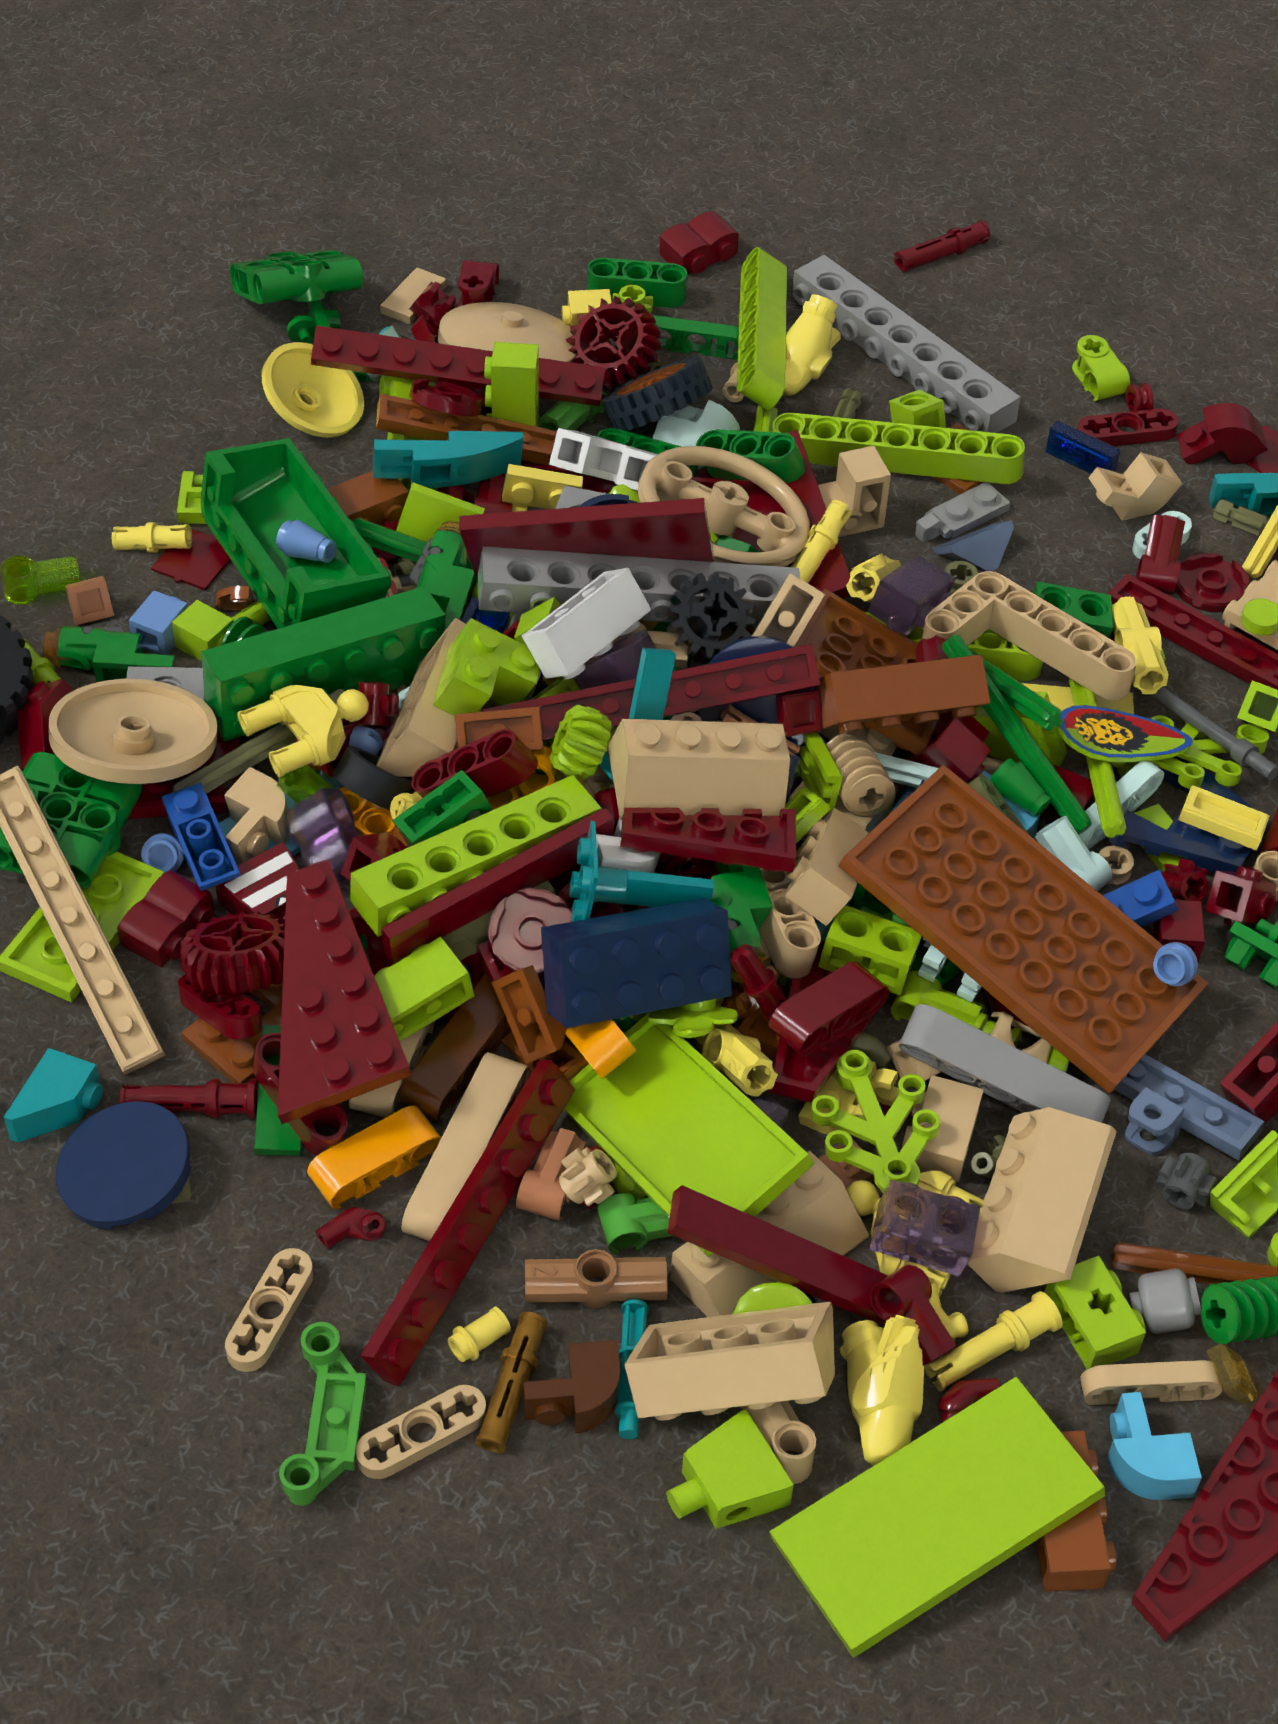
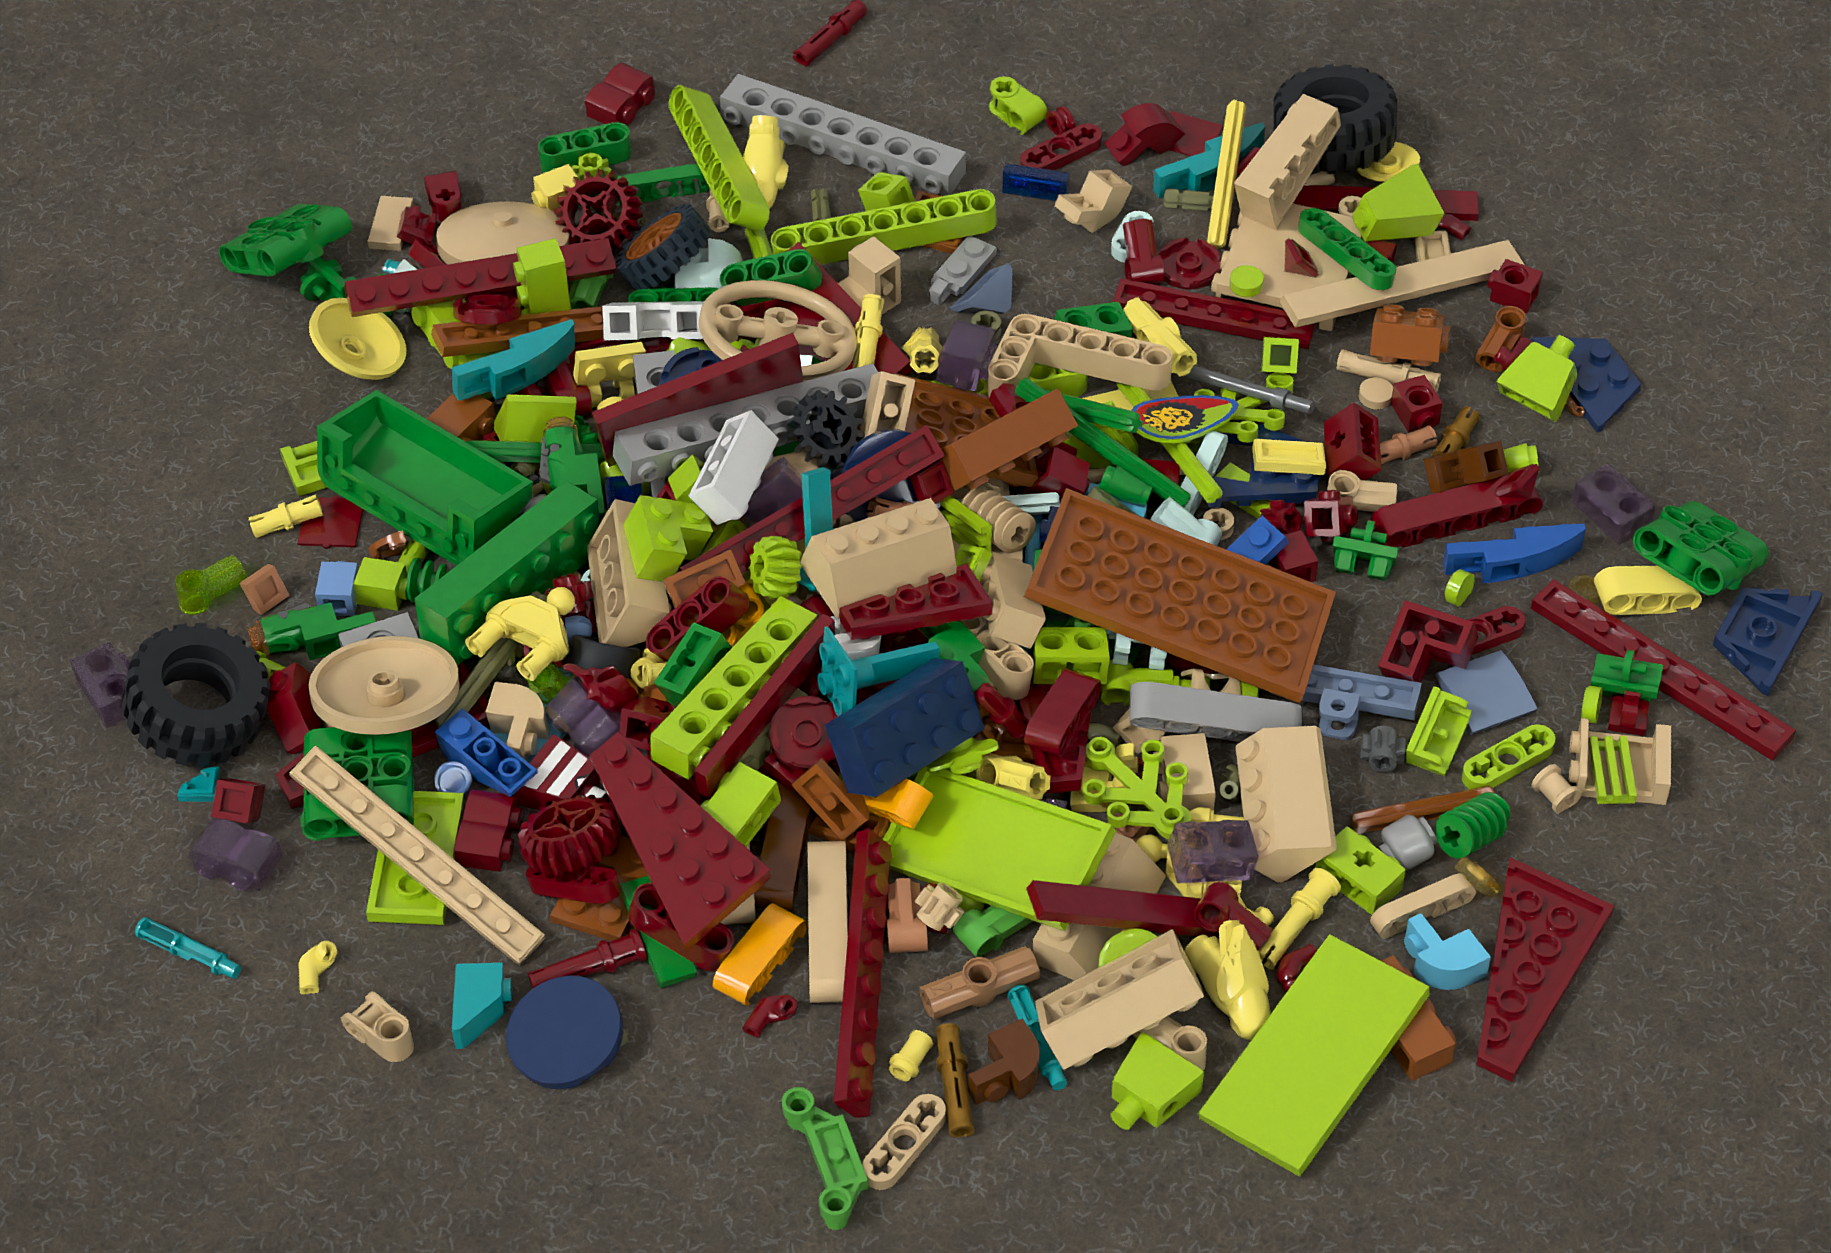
camera: 20 degrees left, 0 degrees up
(269, 1290) = (732, 1084): tan beam -> none
(304, 542) = (437, 476): medium blue cone -> none
(351, 808) = (605, 686): none -> dark red piece
(1175, 964) = (1308, 585): medium blue plate -> none

